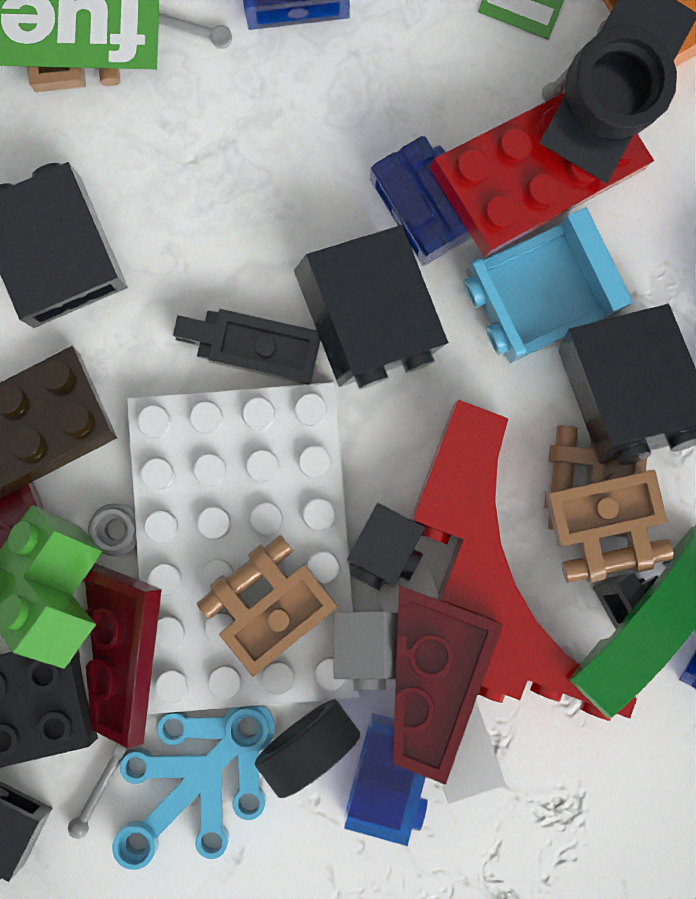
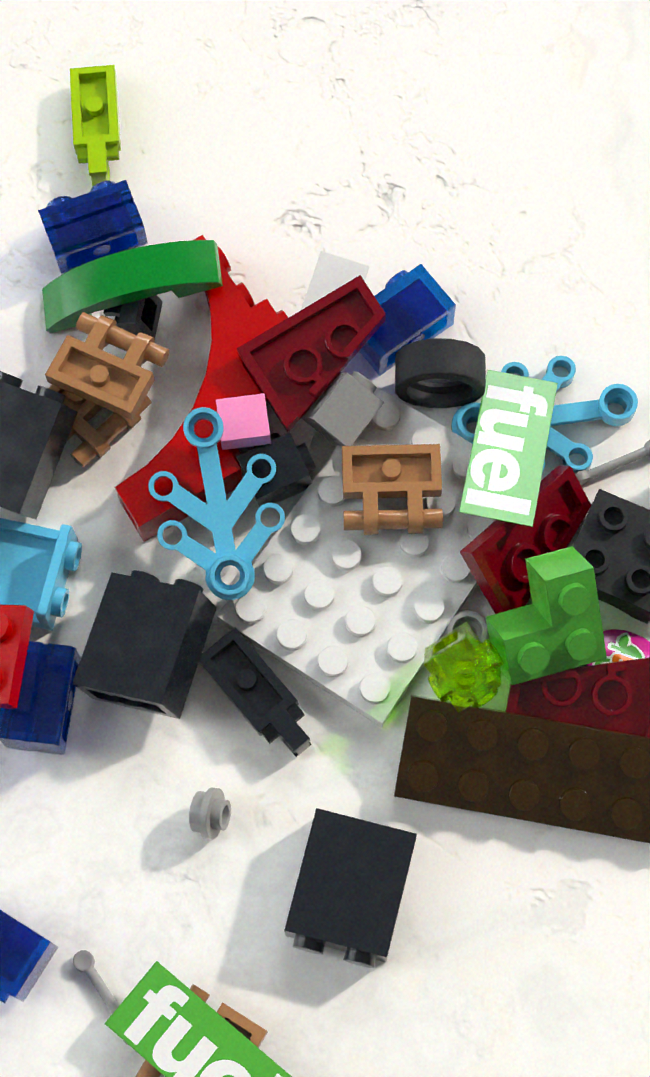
camera: 140 degrees left, 15 degrees down
(82, 488) = (463, 668): none -> clear neon green brick
(193, 723) = (509, 448): none -> sticker
(209, 216) = (209, 813): none -> light grey plate
(397, 460) = (219, 513): none -> medium azure plant
(442, 561) = (244, 421): none -> bright pink tile

